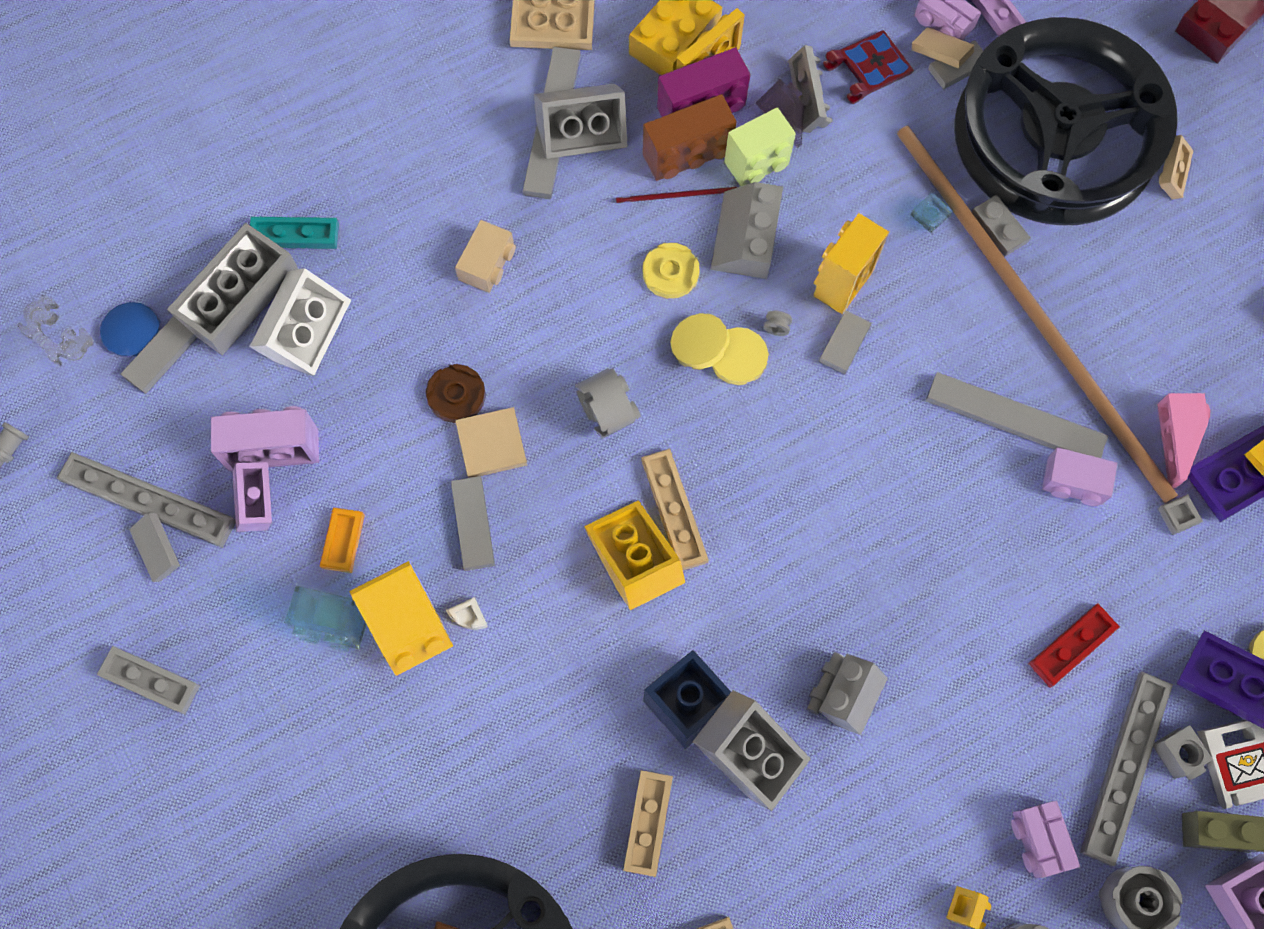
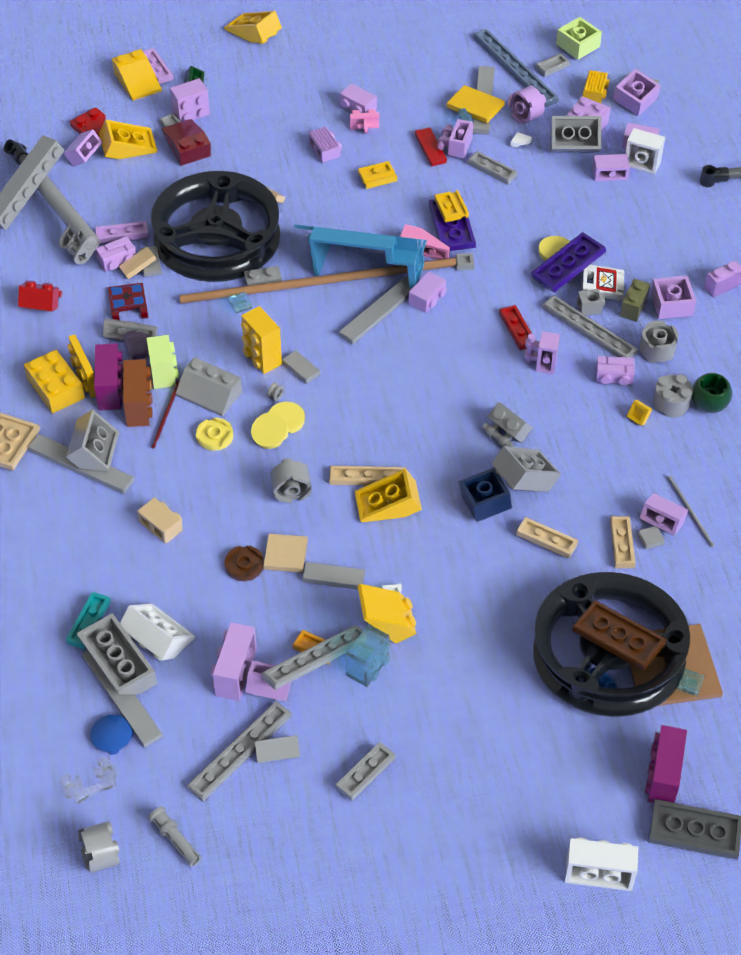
camera: 70 degrees left, 20 degrees down
(293, 539) = (311, 658): none -> light grey tile
(1023, 708) = (547, 351): none -> lavender brick
(1126, 386) = (397, 249): none -> dark azure panel

